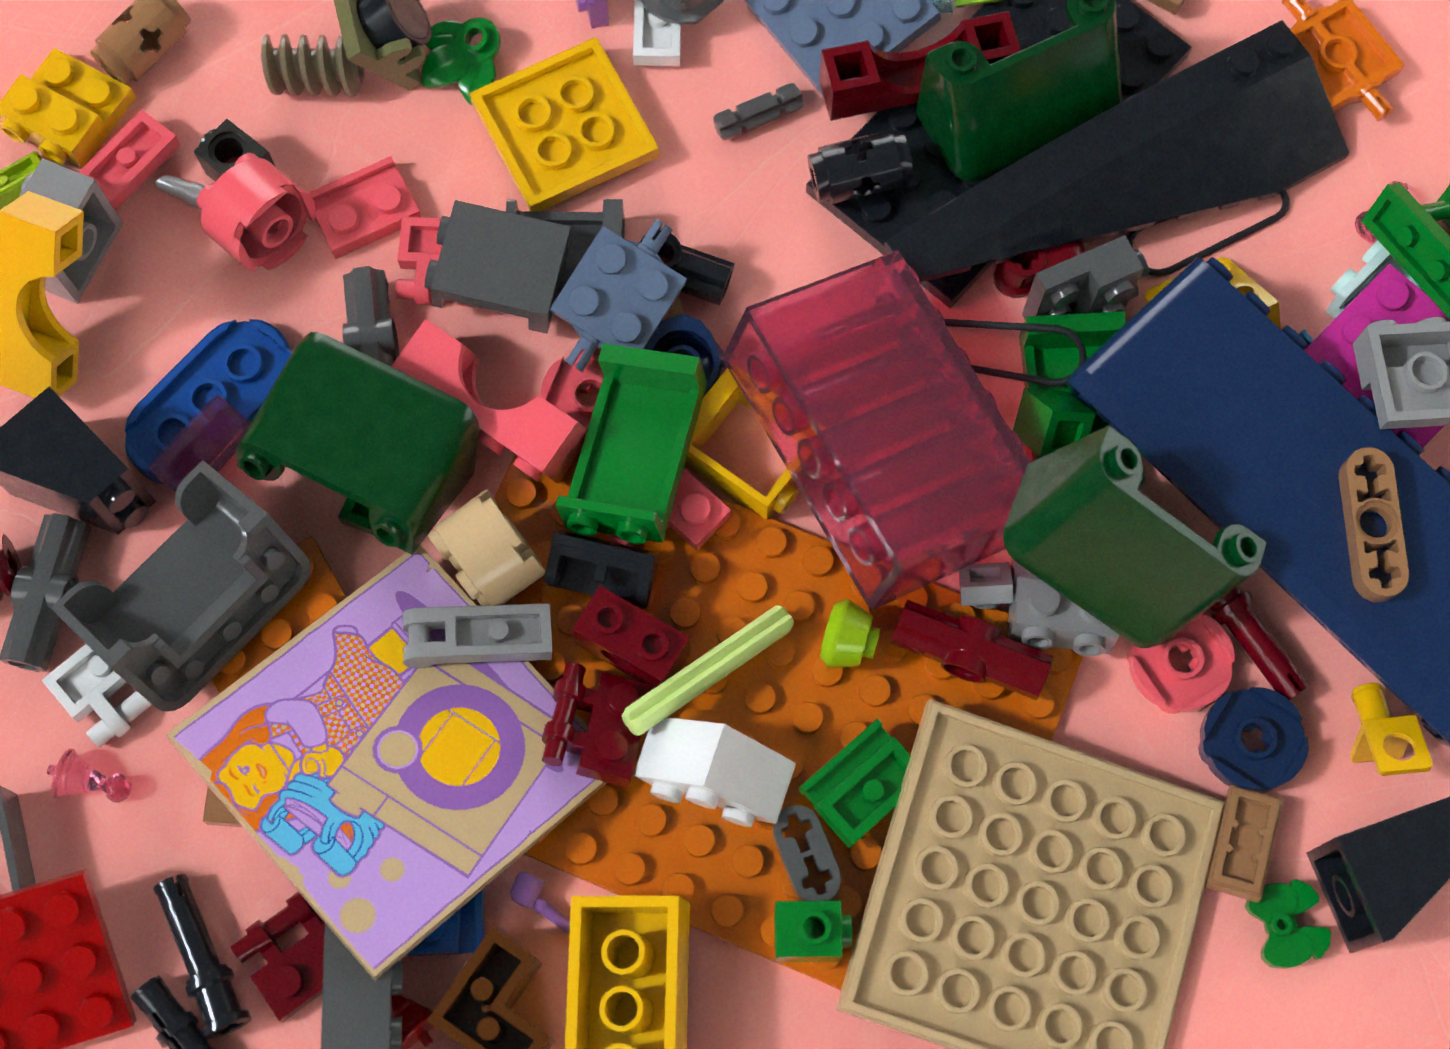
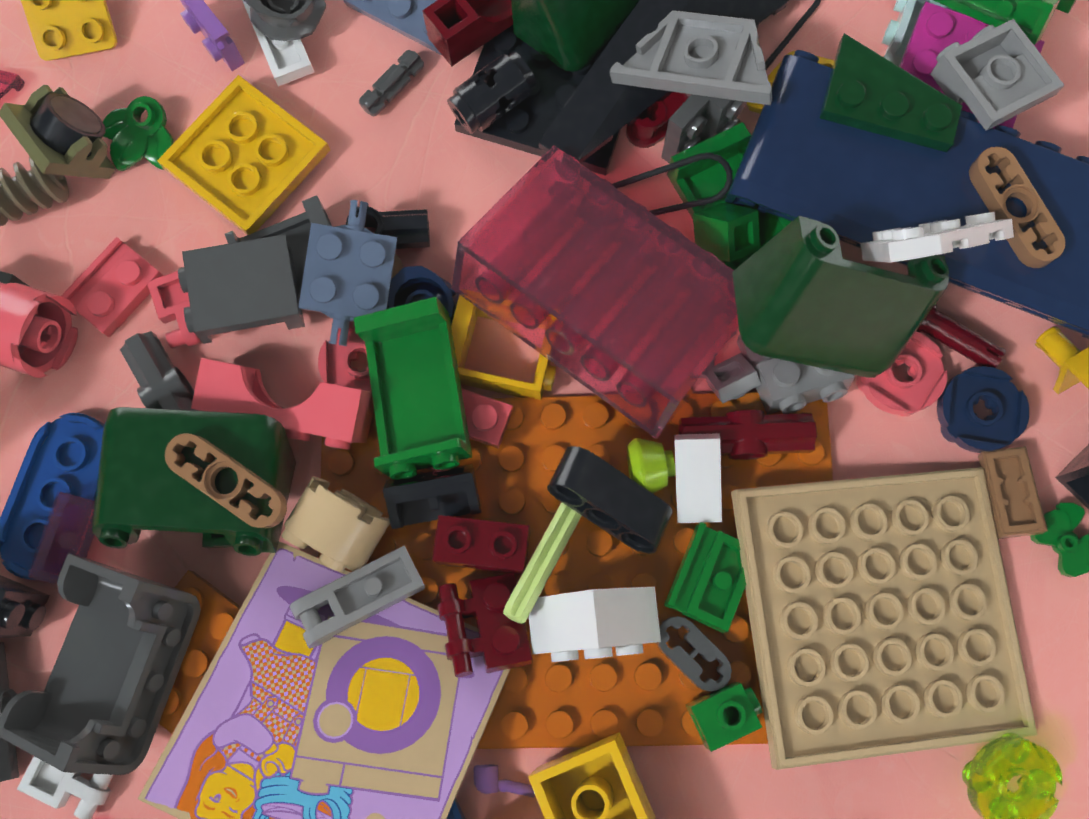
camera: 20 degrees left, 5 degrees up
(391, 415) = (191, 473): none -> medium nougat beam
(789, 651) = (610, 499): none -> black beam
(895, 670) = (698, 478): none -> white tile
(1097, 221) = (701, 58): none -> light grey wing
(1263, 515) = (935, 238): none -> white plate
(1283, 350) = (887, 100): none -> dark green wing

